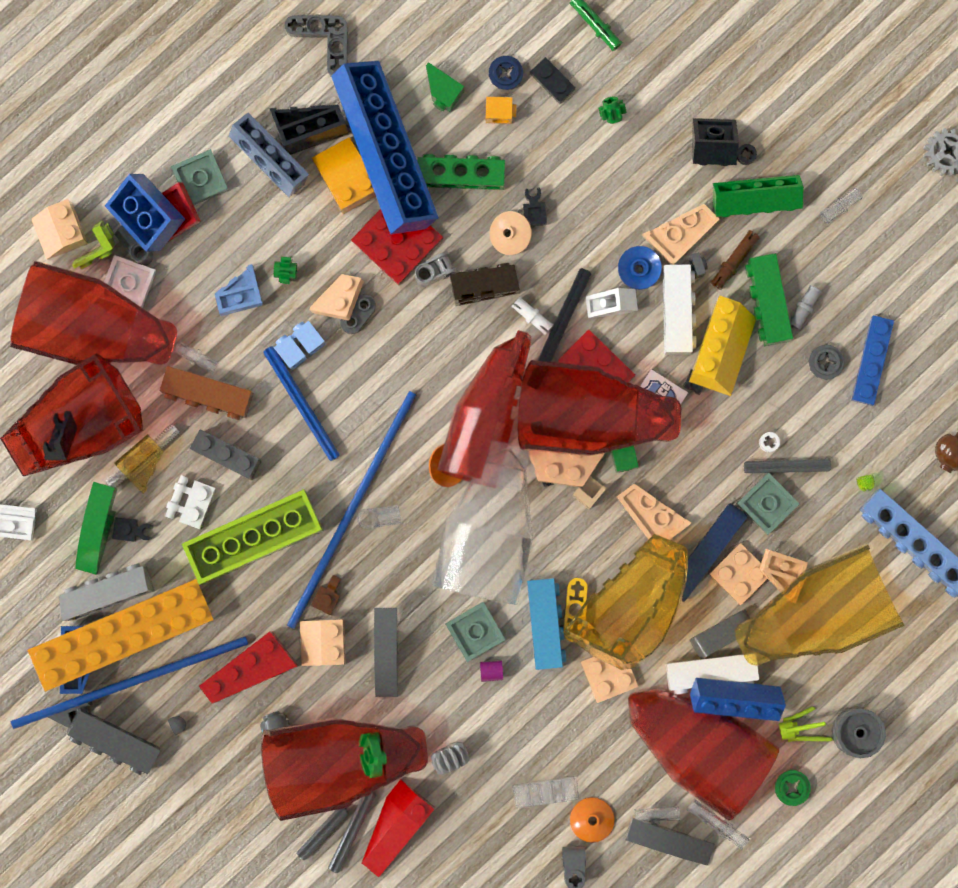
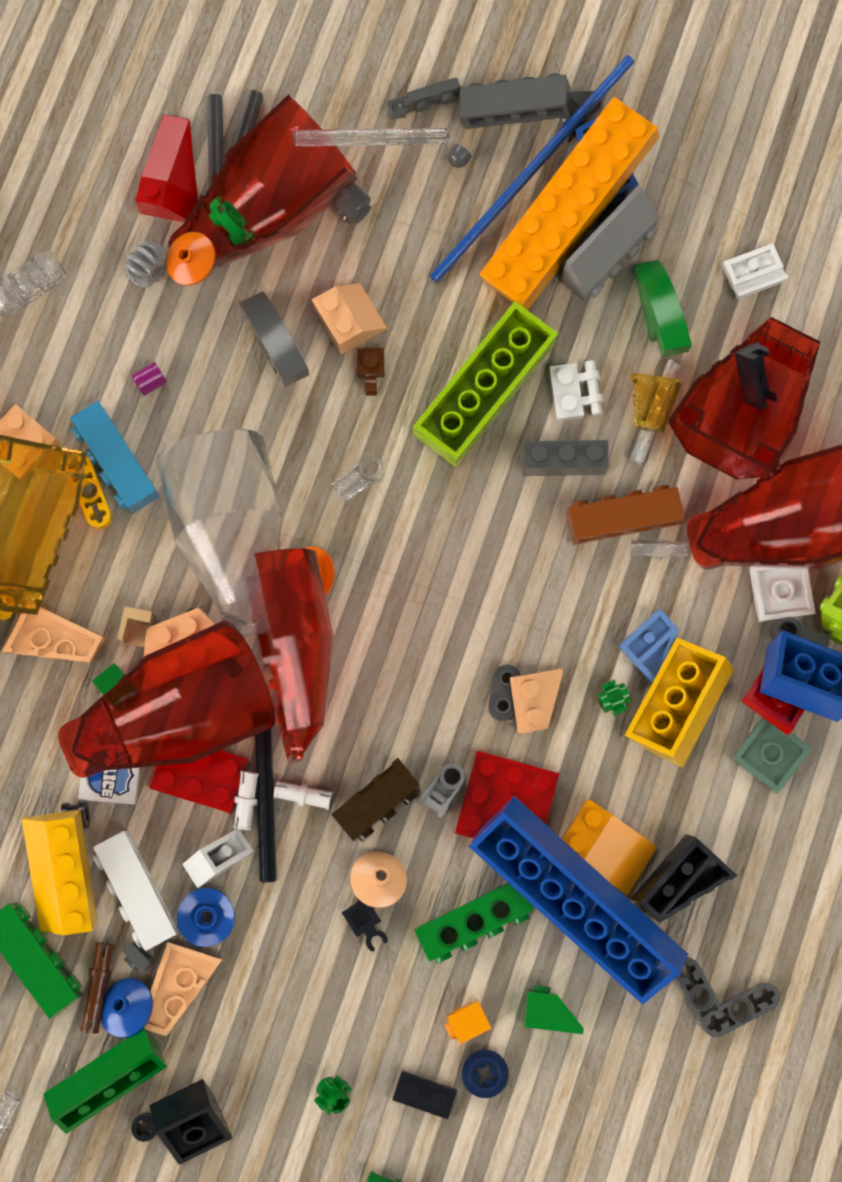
camera: 150 degrees right, 5 degrees down
(128, 529) = (625, 327): black plate -> none
(180, 783) = (423, 98): none -> dark grey hinge
(234, 769) = (355, 137): none -> clear axle
(242, 244) = (680, 701): none -> yellow slope
(253, 666) = (411, 249): red wedge -> none
(268, 154) = (708, 821): sand blue brick -> none
(301, 403) = (513, 559): blue axle -> none
(307, 337) = (557, 609): light blue piece -> none
(351, 510) = (394, 478): blue piece -> none
(407, 737) = (198, 262): none -> orange dish
(475, 631) = (188, 409): sand green plate -> none
(573, 332) = (245, 800): none -> white pin
(713, 232) = (135, 1011): none -> blue dish

